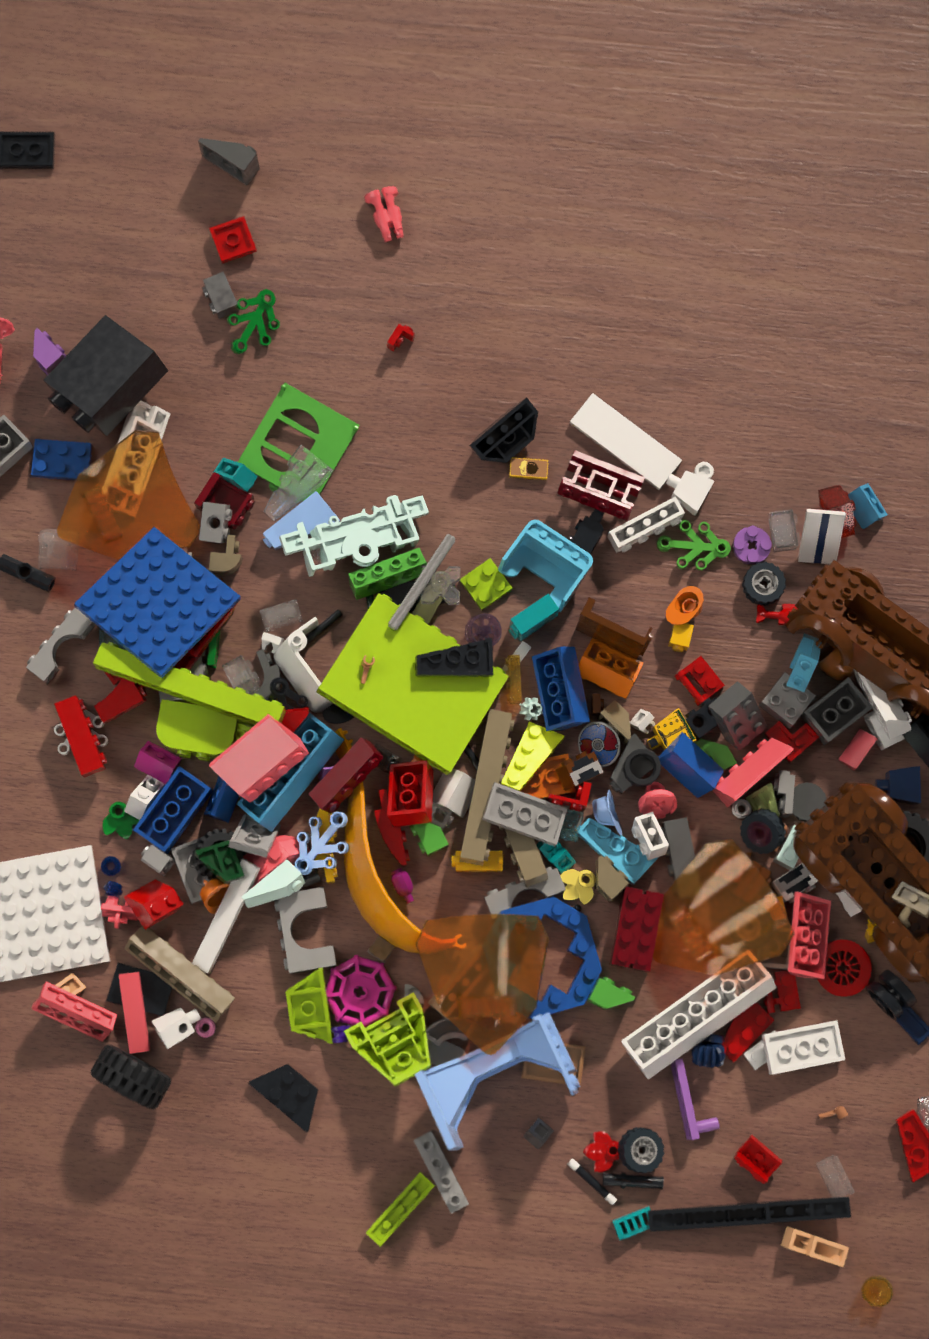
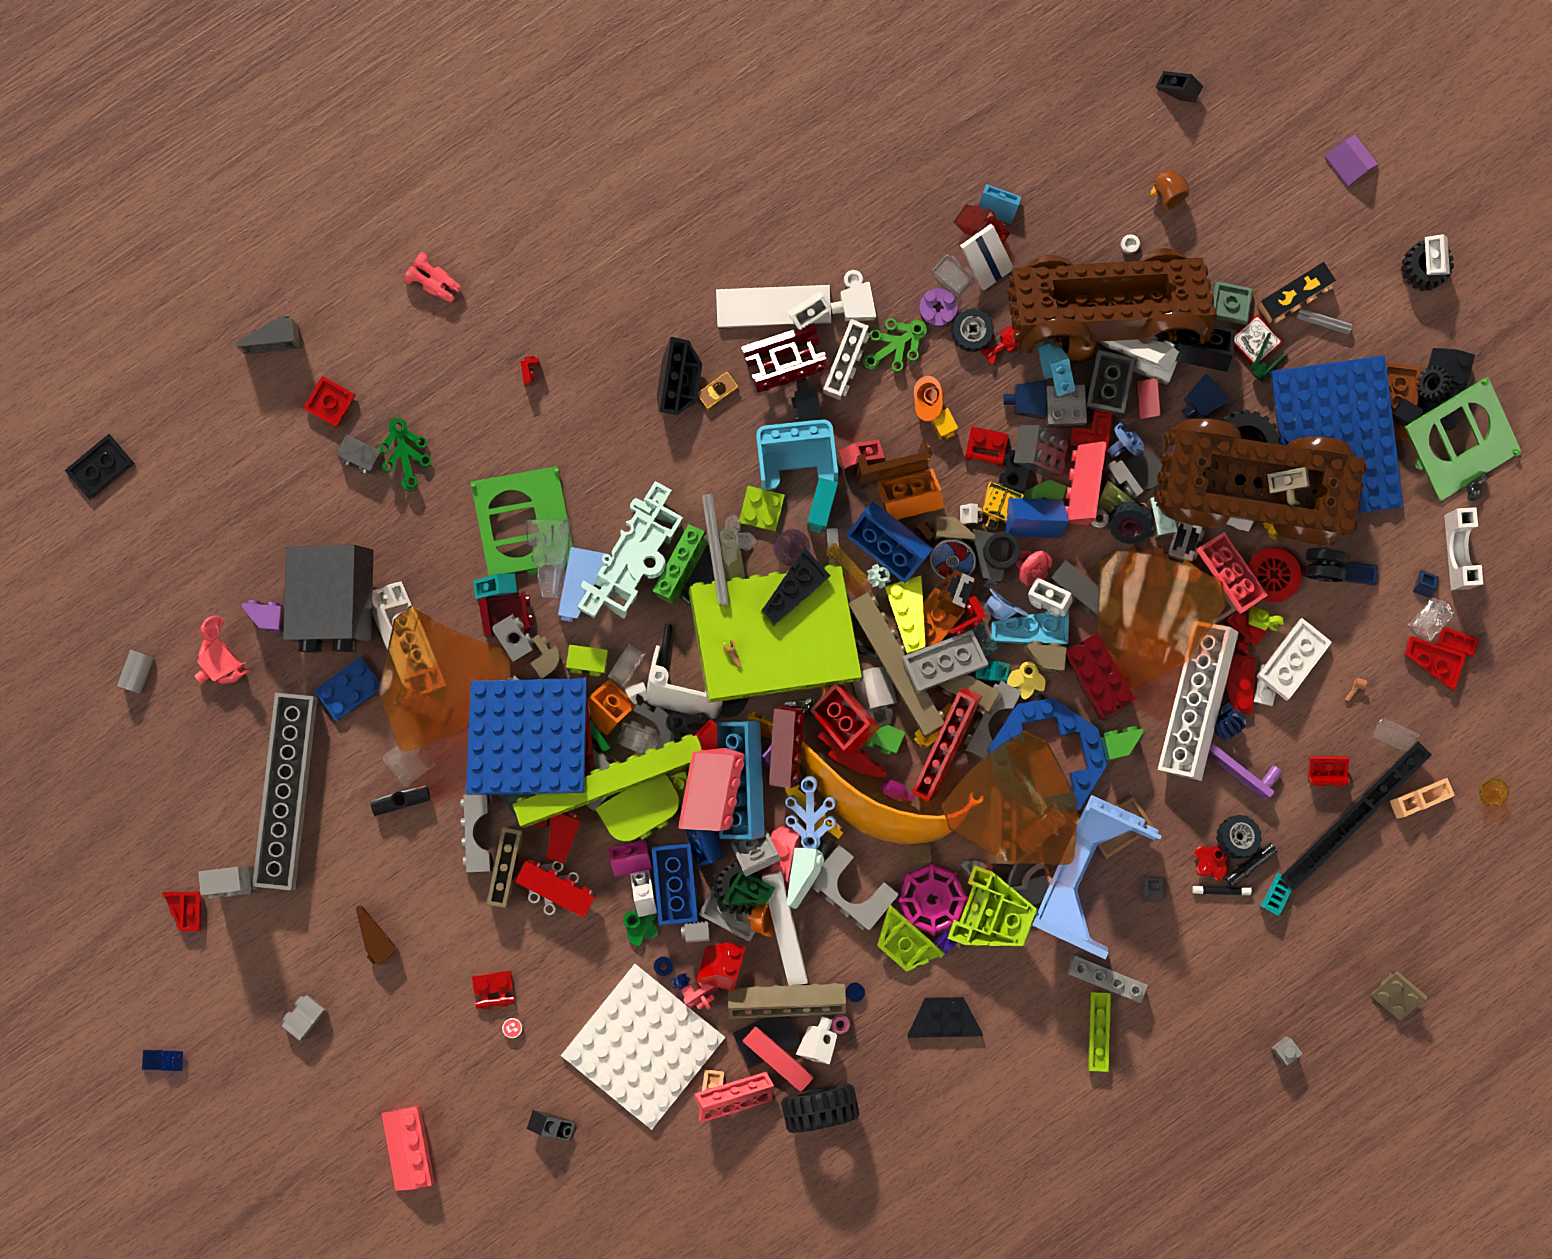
camera: 40 degrees left, 5 degrees up
(57, 688) = (505, 867): none -> dark tan brick
(238, 1012) = (855, 992): none -> clear blue tile
(241, 634) = (609, 706): none -> orange slope
(256, 586) = (587, 659): none -> lime brick
(471, 879) = (946, 744): none -> red brick
(603, 605) = (871, 449): none -> coral slope
(649, 464) = (809, 310): none -> white brick
(762, 671) = (1028, 399): none -> dark blue torso
(803, 994) = (1262, 620): none -> lime plate
(812, 766) = (1127, 440): none -> medium blue tile

